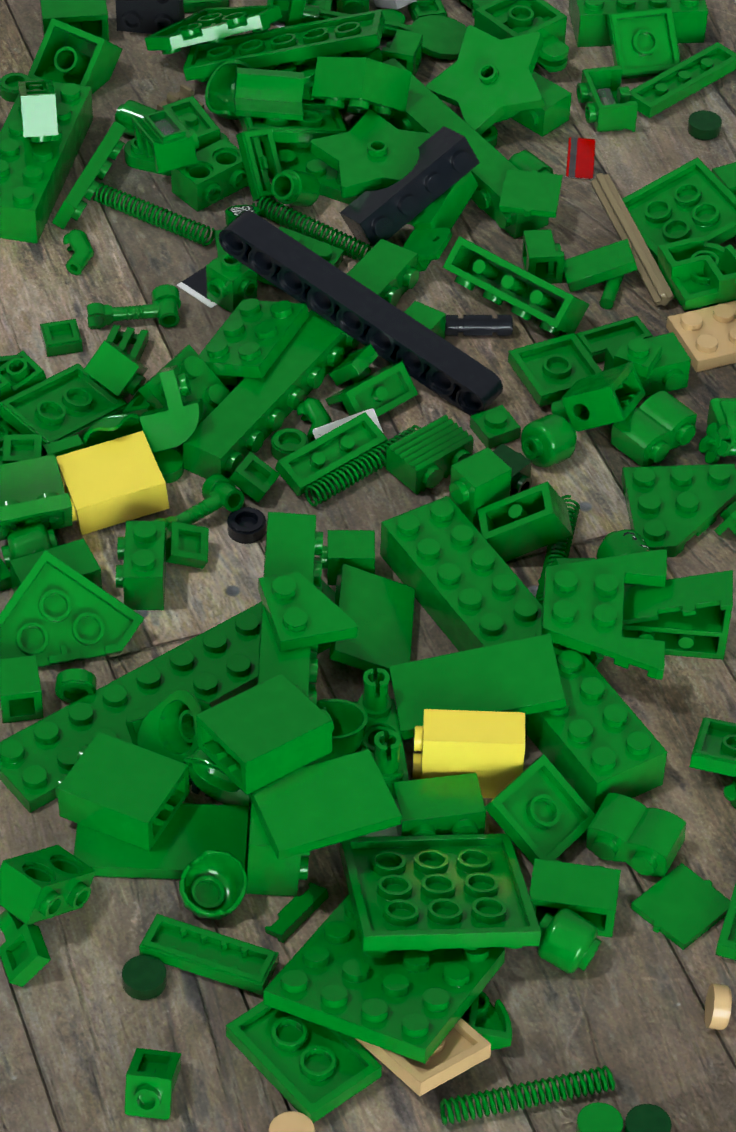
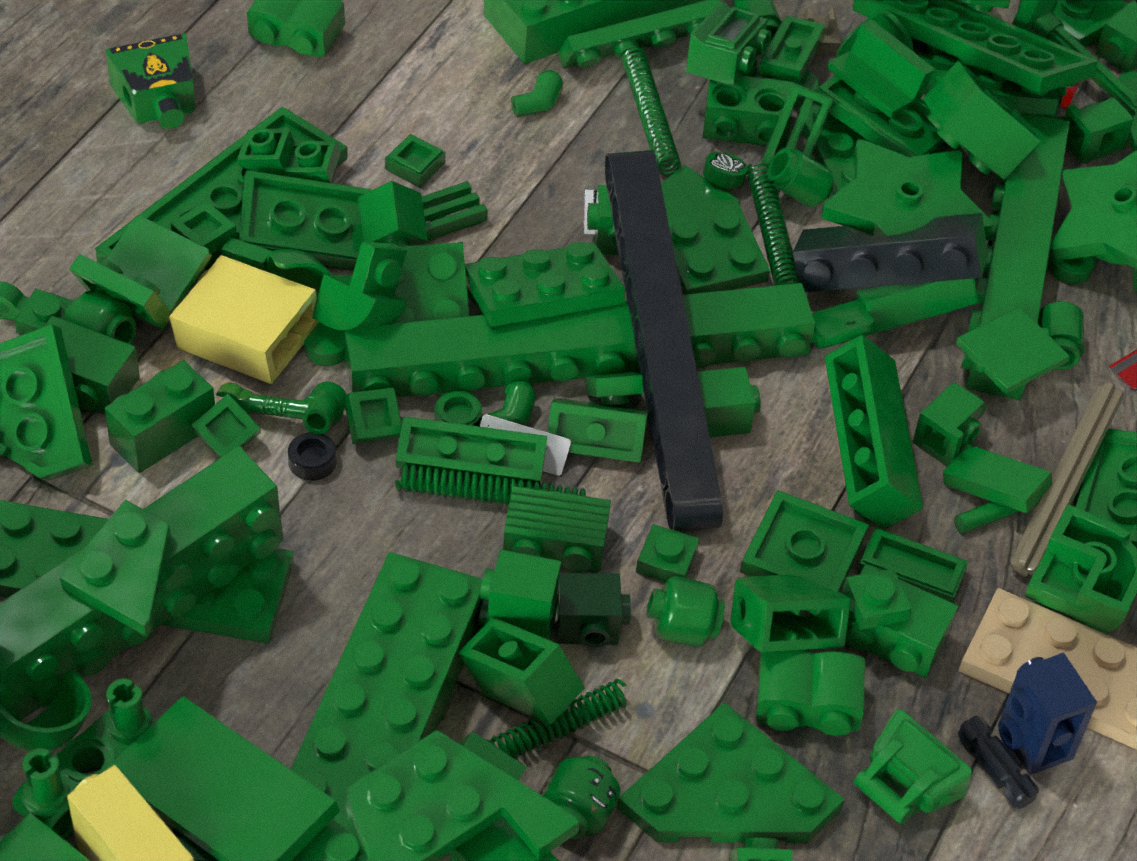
camera: 45 degrees right, 5 degrees up
(164, 306) = (530, 201): green brick -> none
(348, 547) = (339, 563): green brick -> none
(382, 616) = (261, 644): green tile -> none
(479, 325) = (795, 442): black axle -> none
(715, 442) = (854, 760): green plant -> none

